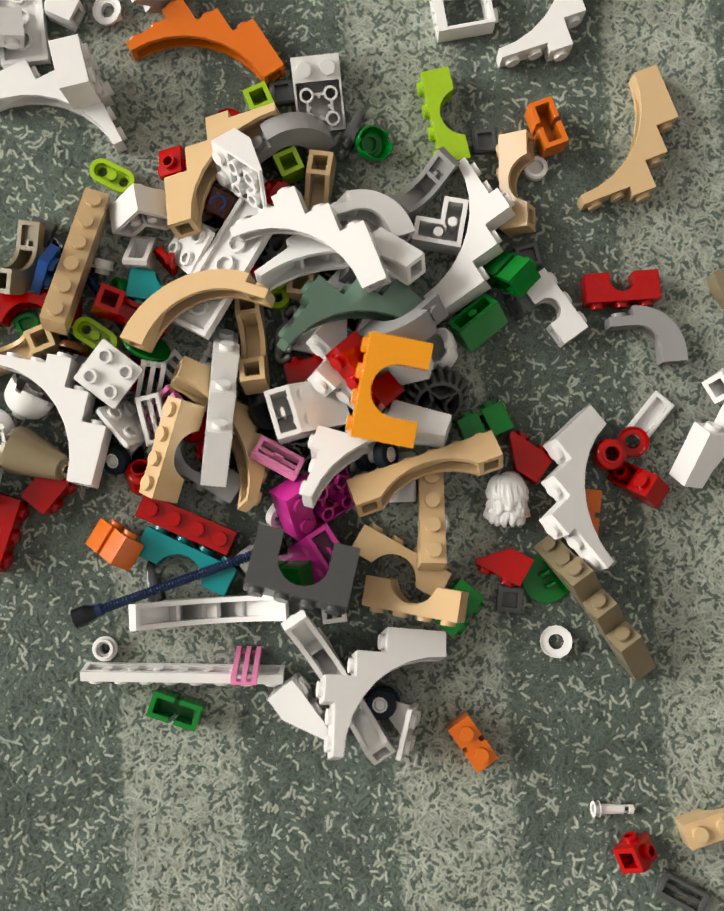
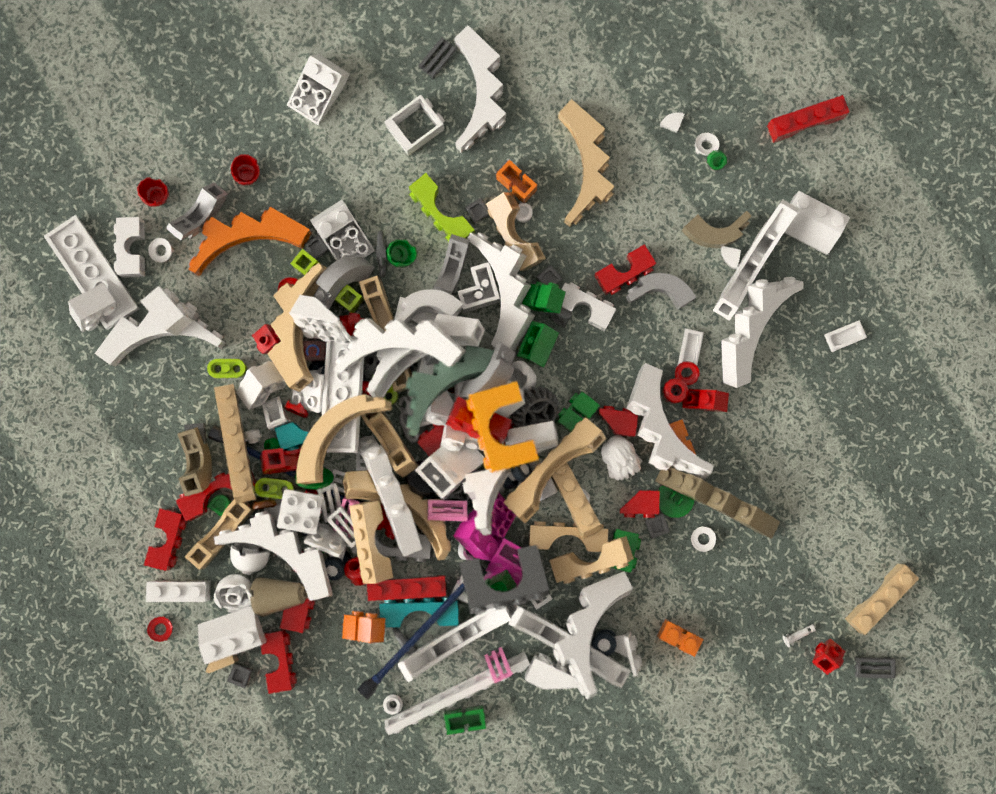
camera: 25 degrees left, 0 degrees up
(46, 268) = (218, 460): blue wing -> none

